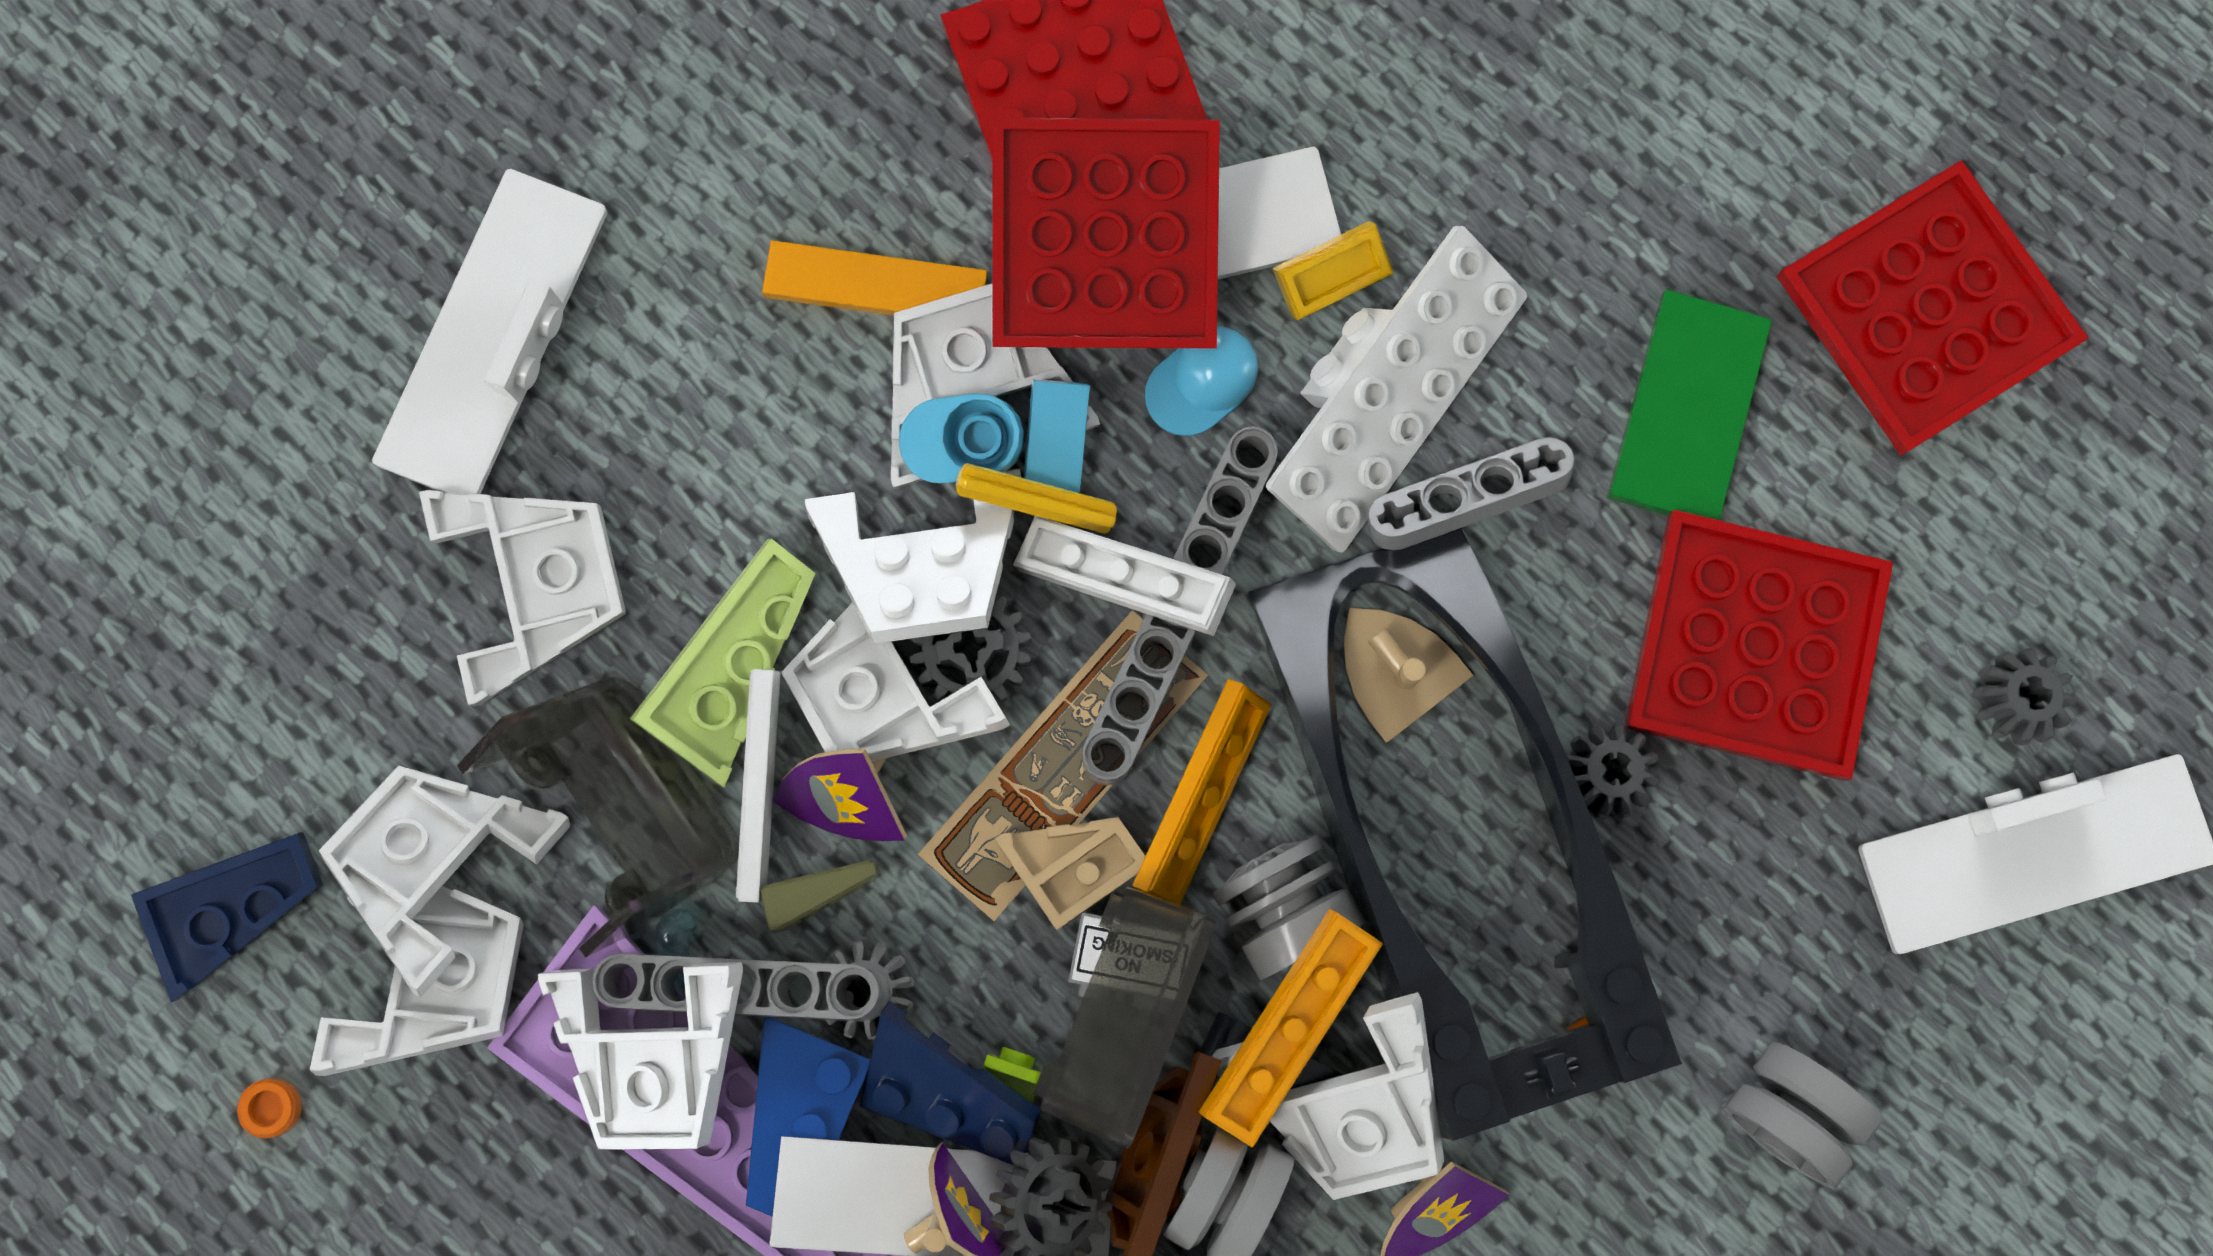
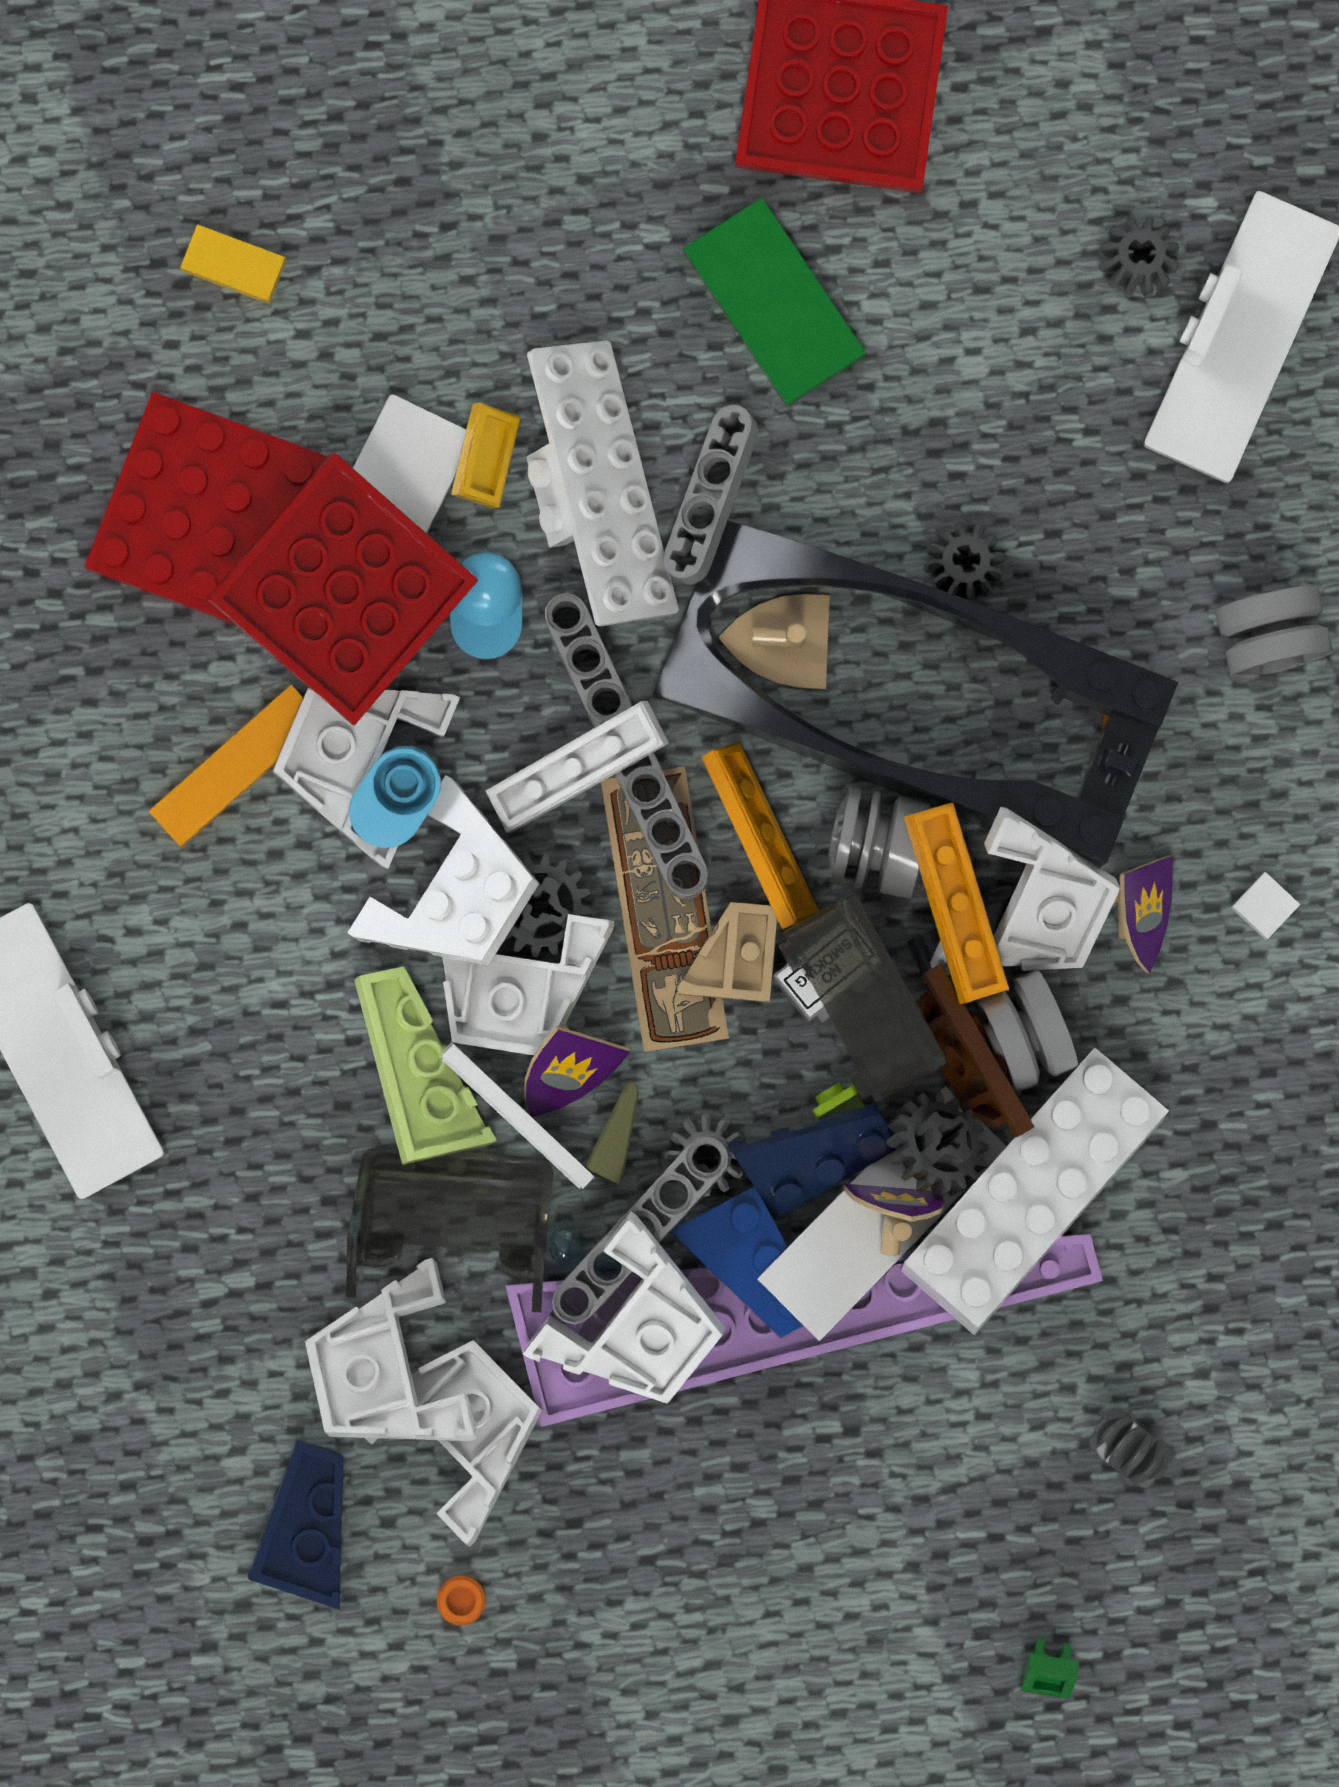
camera: 50 degrees left, 5 degrees up
(552, 575) = (259, 1139): white wing -> none
(1035, 498) = (477, 781): yellow axle -> none
(1056, 433) = (446, 734): medium azure tile -> none
(1759, 645) = (964, 395): red plate -> none

